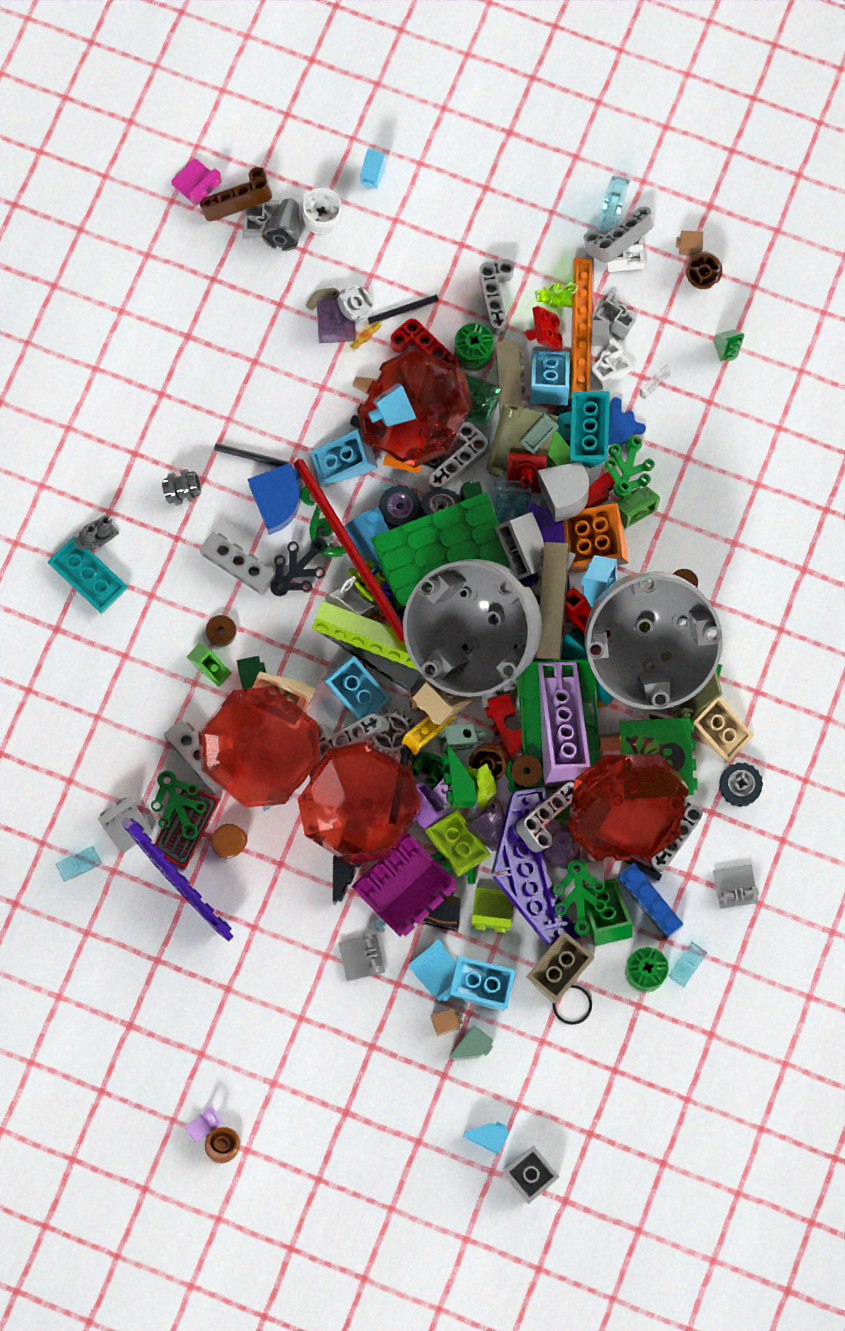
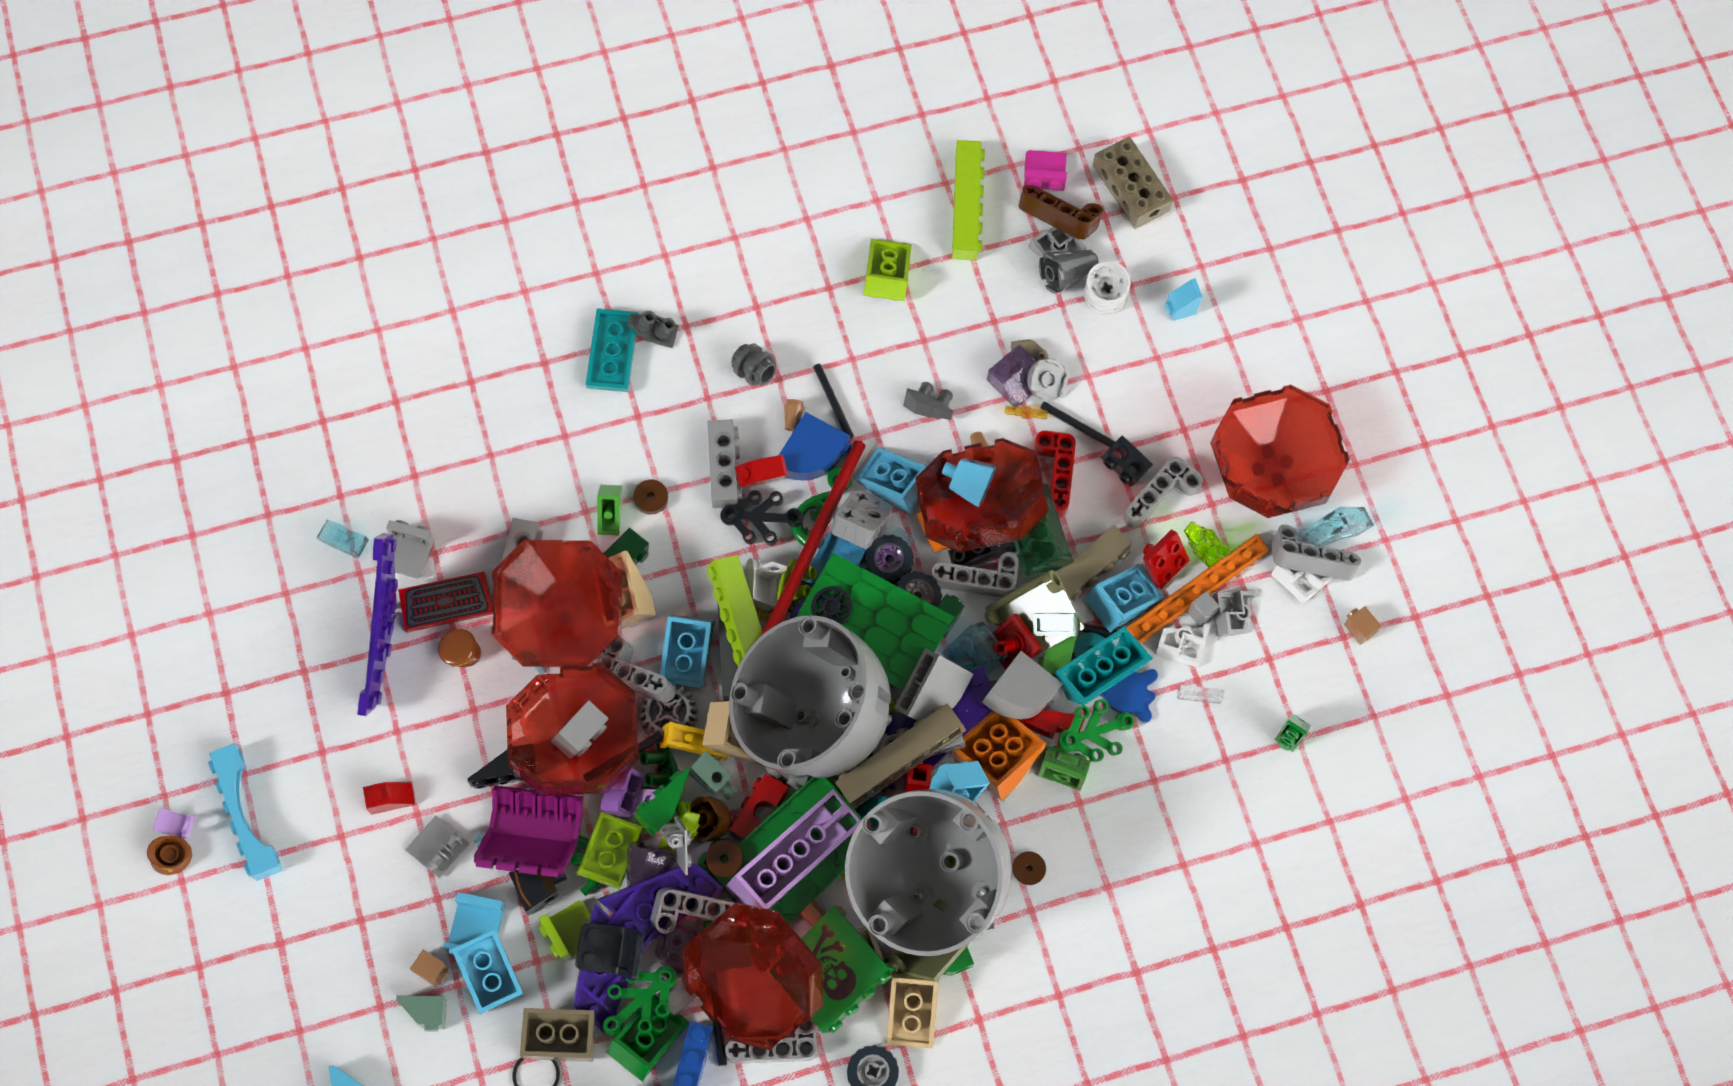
camera: 50 degrees right, 5 degrees down
(175, 250) = (966, 200): none -> lime brick
(176, 802) = (458, 577): green plant -> none
(183, 343) = (887, 270): none -> lime slope
(239, 489) = (792, 413): none -> medium nougat cone
(255, 132) = (1132, 182): none -> dark tan brick
(268, 541) = (761, 471): none -> red slope
(276, 1082) = (228, 766): none -> medium azure arch
(300, 965) = (388, 796): none -> red slope
(303, 398) = (924, 404): none -> dark grey connector
(359, 501) = (861, 518): none -> light grey axle
(362, 798) = (583, 726): none -> light grey brick
(410, 566) = (832, 606): none -> black wheel
(455, 294) = (1129, 457): none -> black brick
(473, 356) = (1084, 515): green wheel -> none
(499, 788) = (678, 838): none -> light grey hinge
(535, 195) = (1279, 451): none -> clear red windscreen
(535, 887) = (609, 949): none -> black piece
(703, 270) = (1345, 654): reddish brown cylinder -> none

